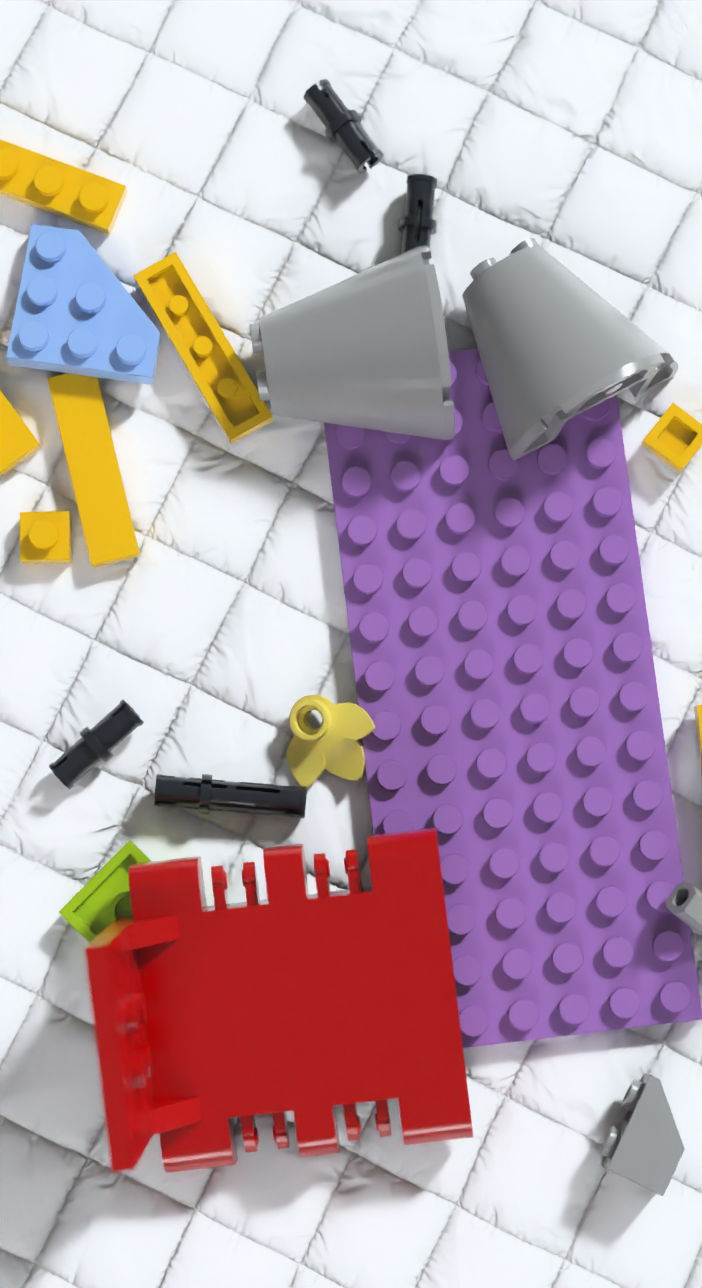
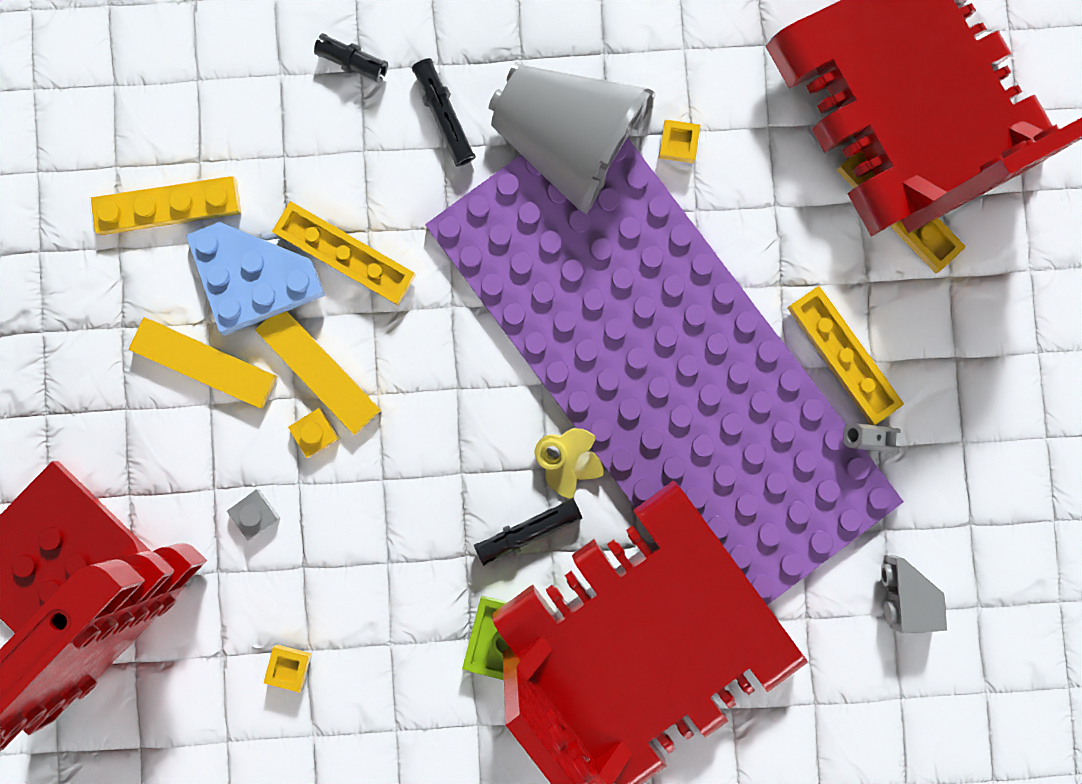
camera: 30 degrees left, 5 degrees up
(96, 744) = (423, 547): black pin -> none
(363, 352) = (450, 197): light grey cone -> none

